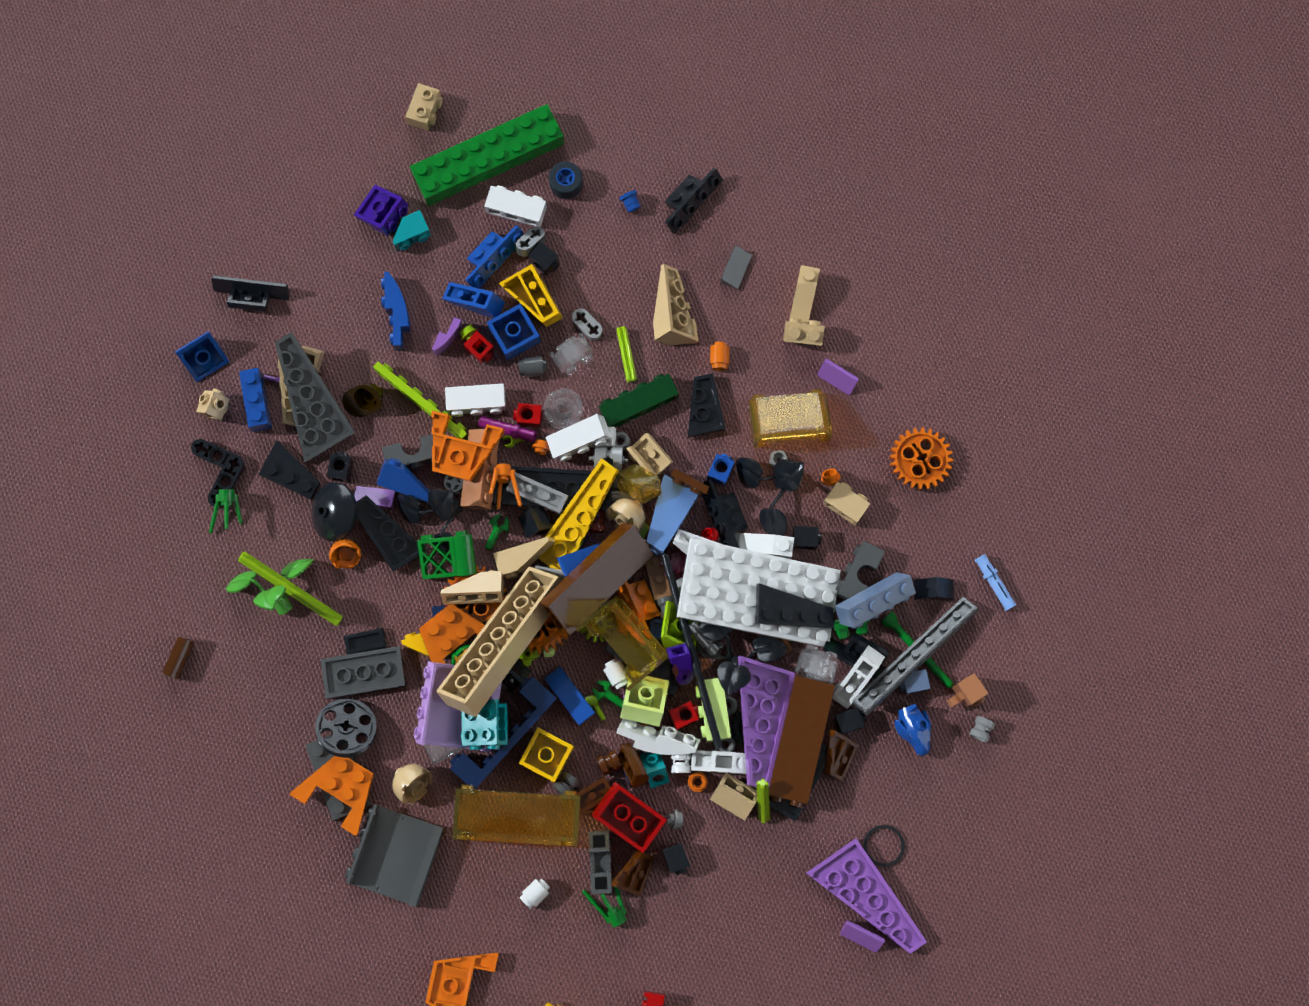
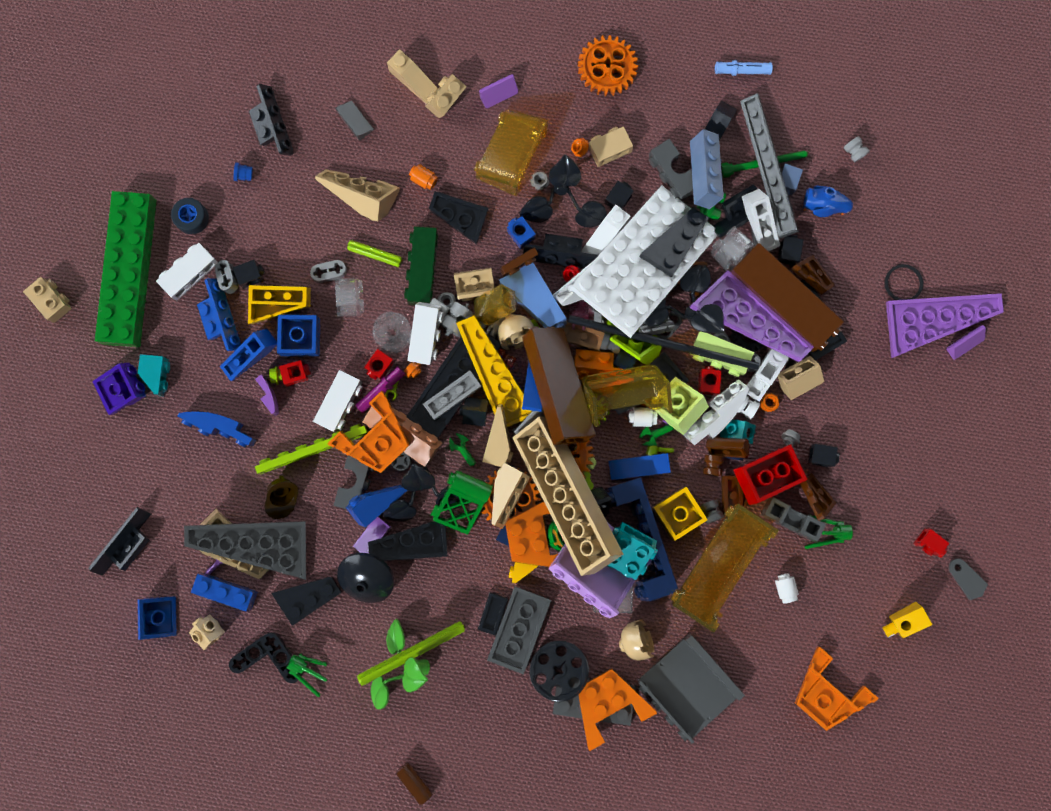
camera: 60 degrees left, 5 degrees up
(344, 474) = (337, 552): black brick -> none
(345, 554) = (407, 589): orange hair -> none
(502, 474) = (419, 415): orange plant -> none
(532, 366) = (338, 337): dark grey brick -> none
(681, 658) = (669, 356): dark purple leg -> none
(763, 801) = (819, 356): lime axle -> none
(968, 692) = (822, 140): nougat brick -> none

